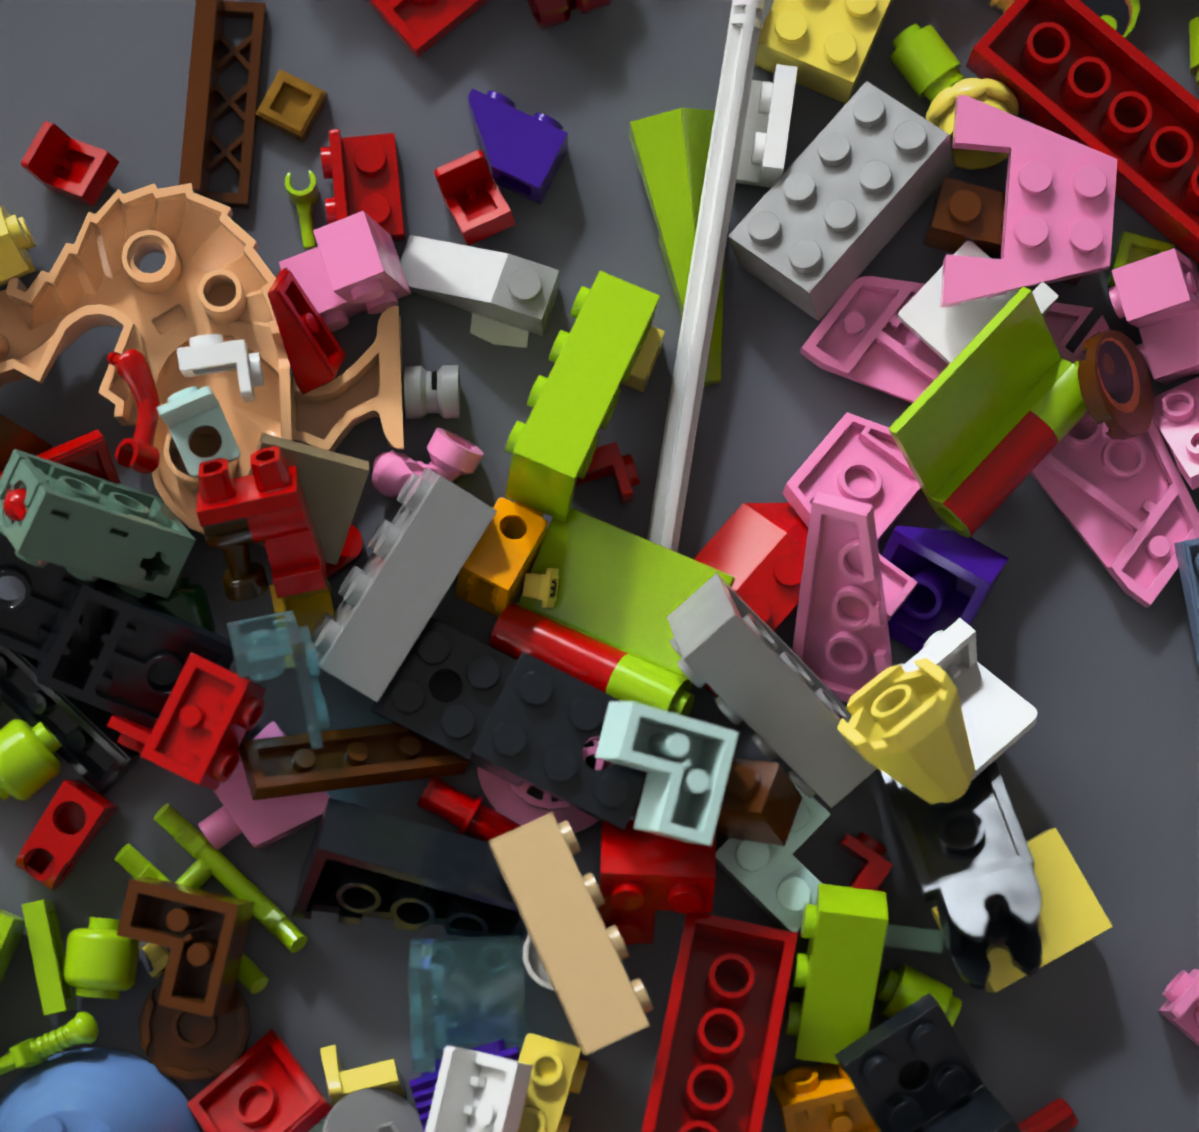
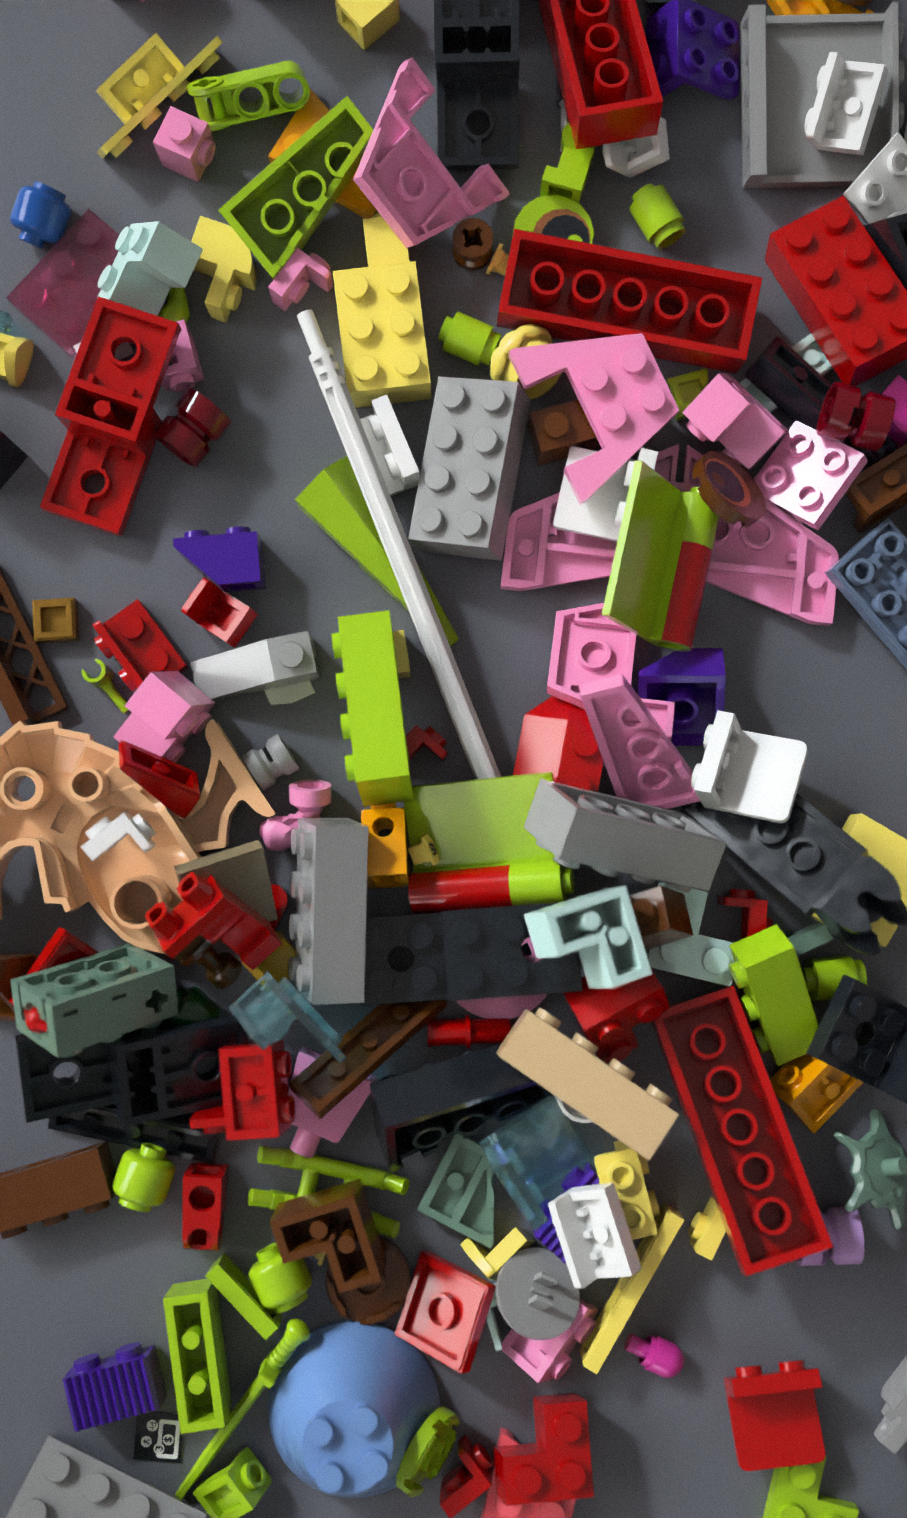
camera: 30 degrees left, 5 degrees up
(139, 451) = (100, 929): red piece -> none
(192, 410) = (117, 879): light aqua bracket -> none
(359, 989) = (462, 1191): none -> sand green wing
(913, 731) = (736, 810): light yellow cone -> none

